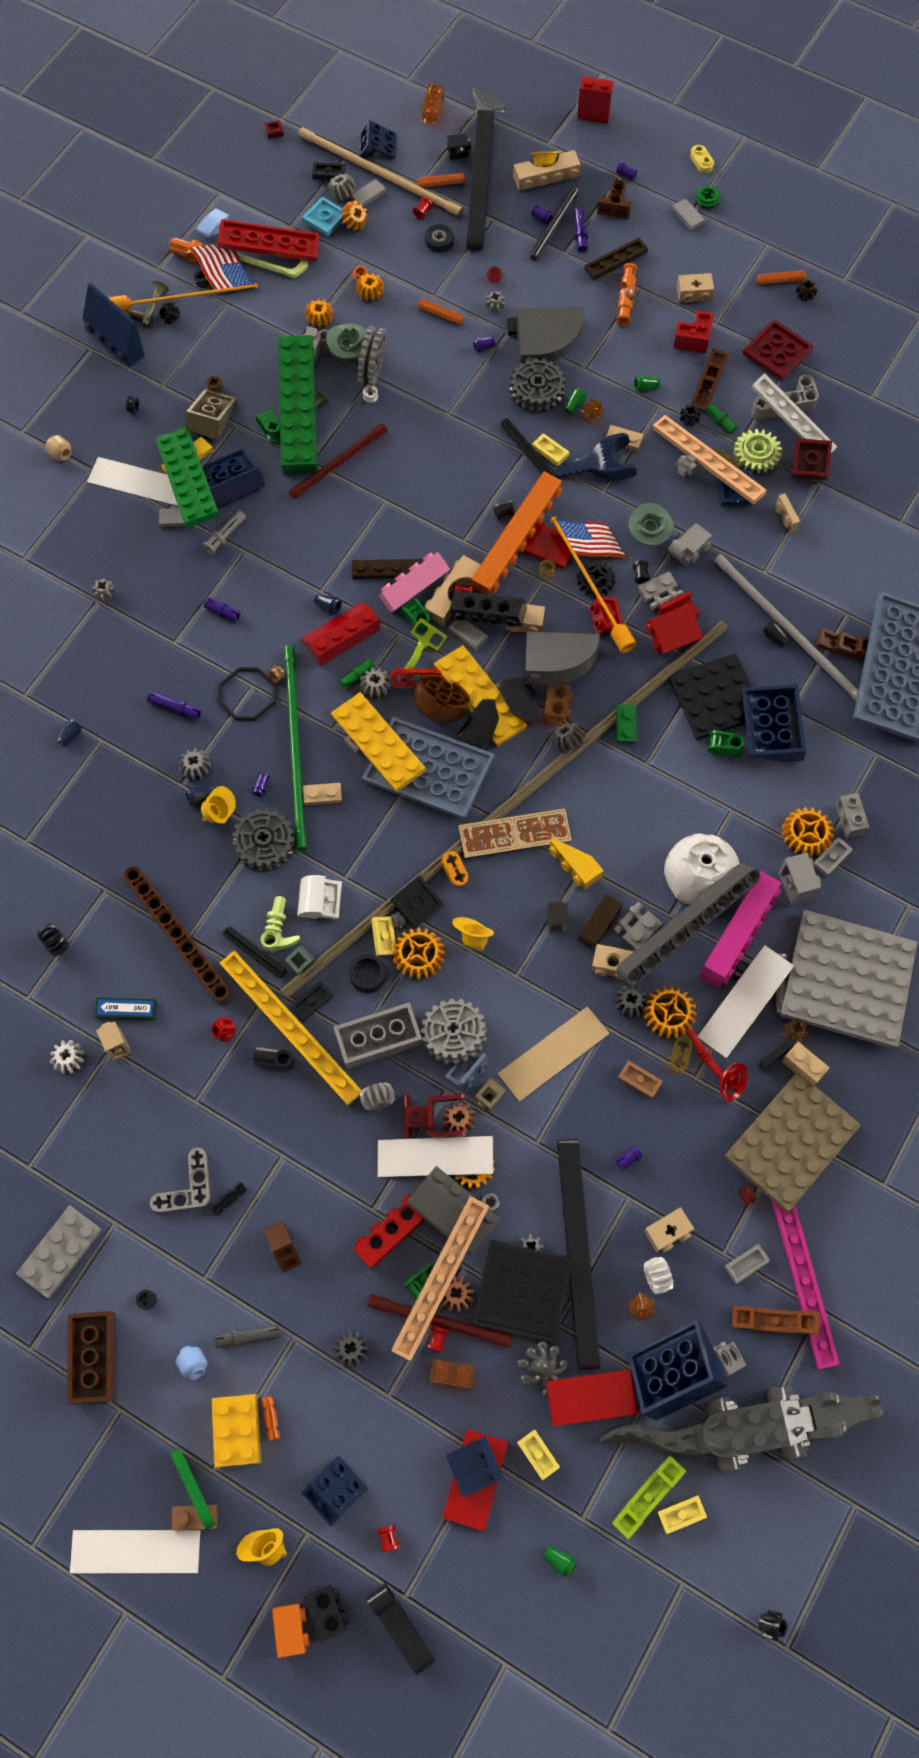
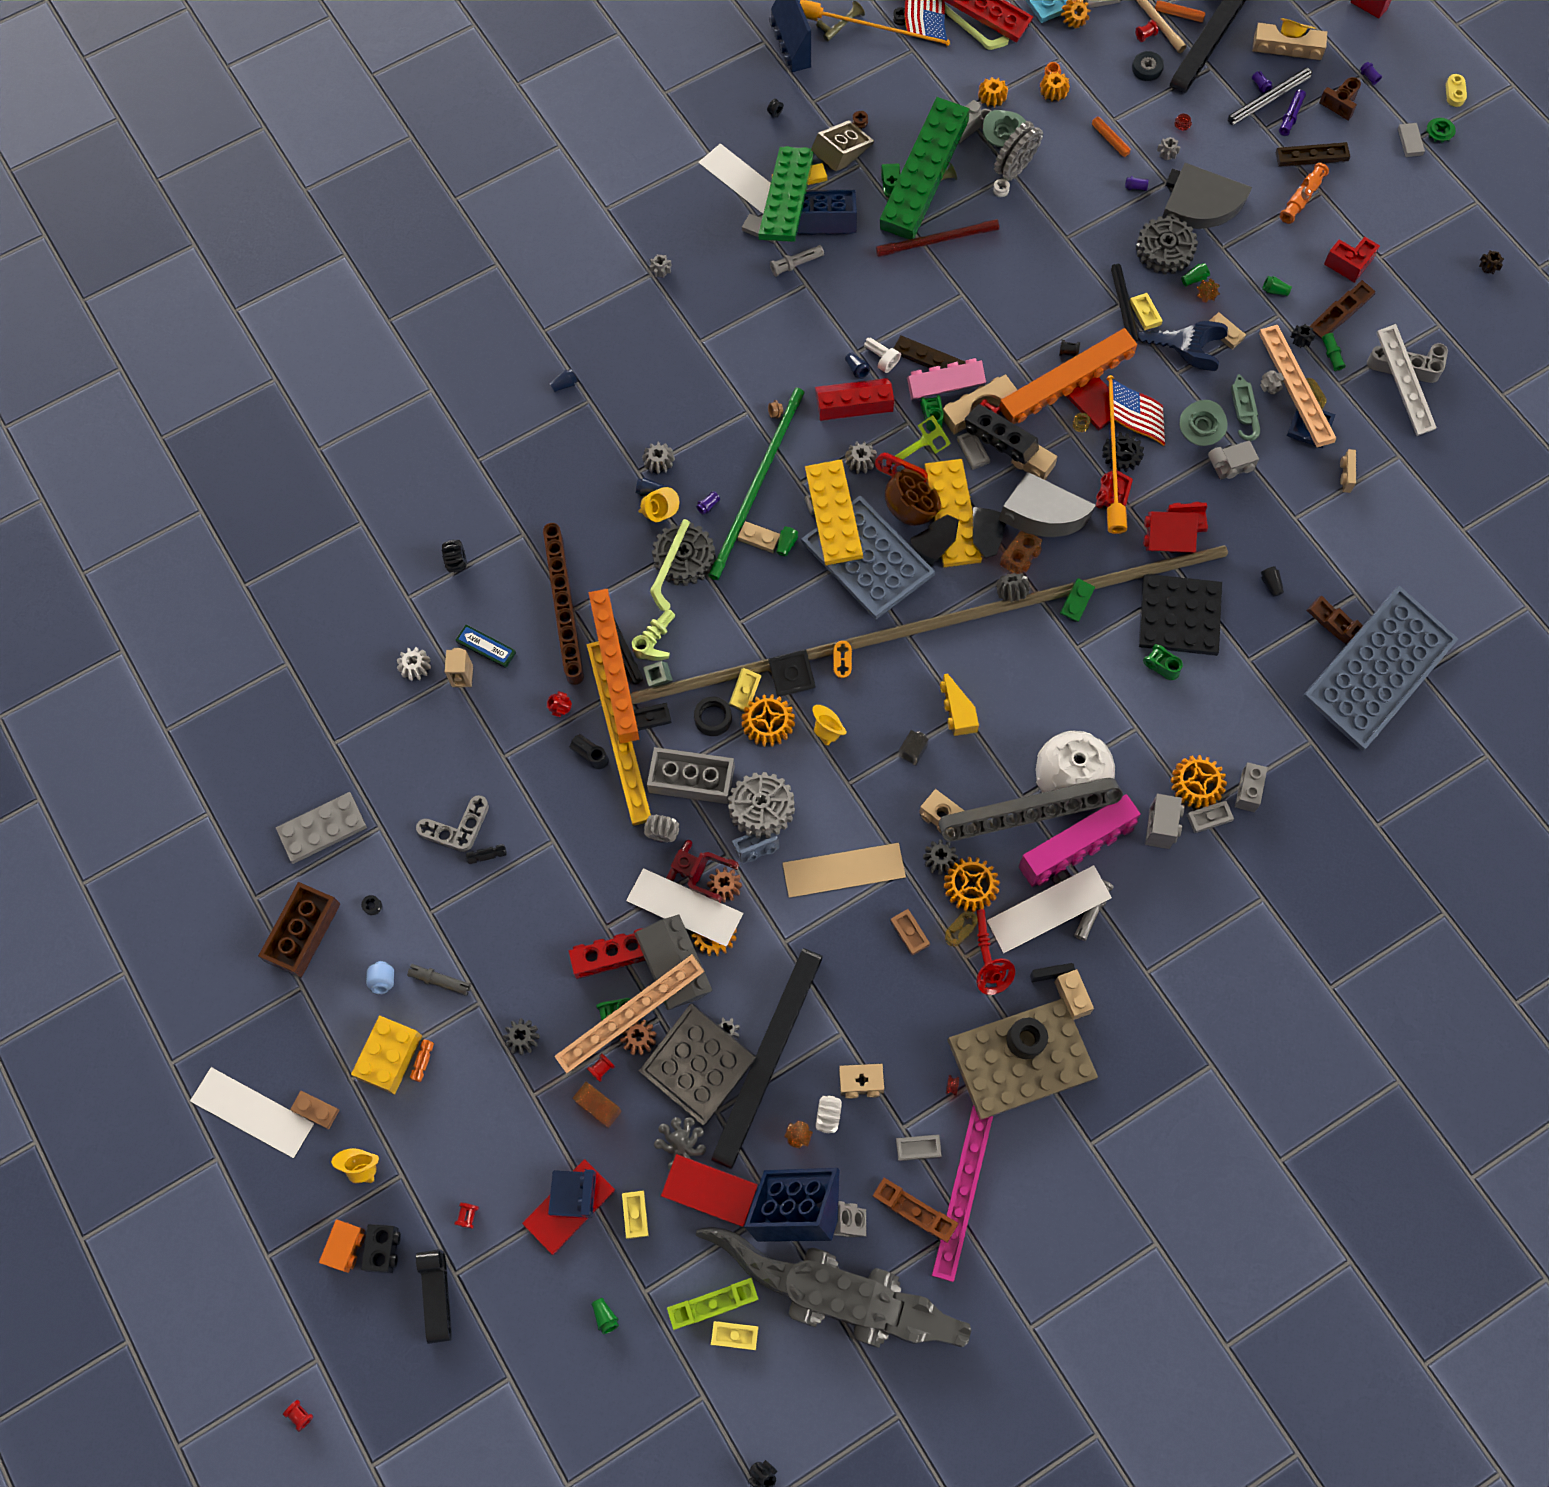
camera: 30 degrees right, 0 degrees up
(58, 448) = (687, 120): tan head -> none
(169, 313) = (853, 36): black gear -> none
(181, 708) = (674, 402): dark purple pin -> none
(193, 1489) = (324, 1084): green beam -> none
(222, 609) = (757, 329): dark purple pin -> none
(234, 673) = (746, 437): black piece -> none
(257, 882) = (655, 590): none -> yellowish green piece
(257, 971) = (613, 666): none -> orange brick
(282, 1246) = (508, 918): reddish brown tile -> none
(319, 897) = (705, 628): white brick -> none
(334, 1490) = (442, 1149): dark blue bracket -> none
(349, 786) = (787, 539): none -> green cone
(352, 583) = (889, 358): none -> white piece
(356, 674) = (845, 442): green pin -> none
(398, 921) = (765, 682): dark grey plate -> none
(492, 1196) = (714, 980): light grey axle -> none
(493, 1089) = (765, 871): dark tan brick -> none
(493, 1336) = (652, 1092): clear red piece -> none
(514, 832) = (916, 653): sticker -> none
(600, 922) = (952, 771): dark brown beam -> none
(629, 1158) = (861, 997): dark purple pin -> none
(641, 571) = (1171, 464): black bush -> none
(641, 931) = (991, 795): light grey plate -> none
(658, 587) = (1180, 487): light grey plate -> none
(675, 495) = (1245, 407): none -> sand green plate
(695, 287) = (1377, 214): tan brick -> none
(728, 568) = (1260, 498): light grey piece -> none
(757, 451) = (1341, 394): yellowish green gear -> none
(774, 723) = (1221, 663): dark blue slope -> none
(778, 350) = (1429, 309): dark red plate -> none
(782, 277) = (1473, 239): orange axle -> none
(797, 1112) = (1033, 1026): none -> black tyre
(800, 1029) = (1081, 954): clear orange gear -> none
(811, 459) = (1401, 428): dark red brick -> none
(849, 979) = (1162, 937): light grey plate -> none

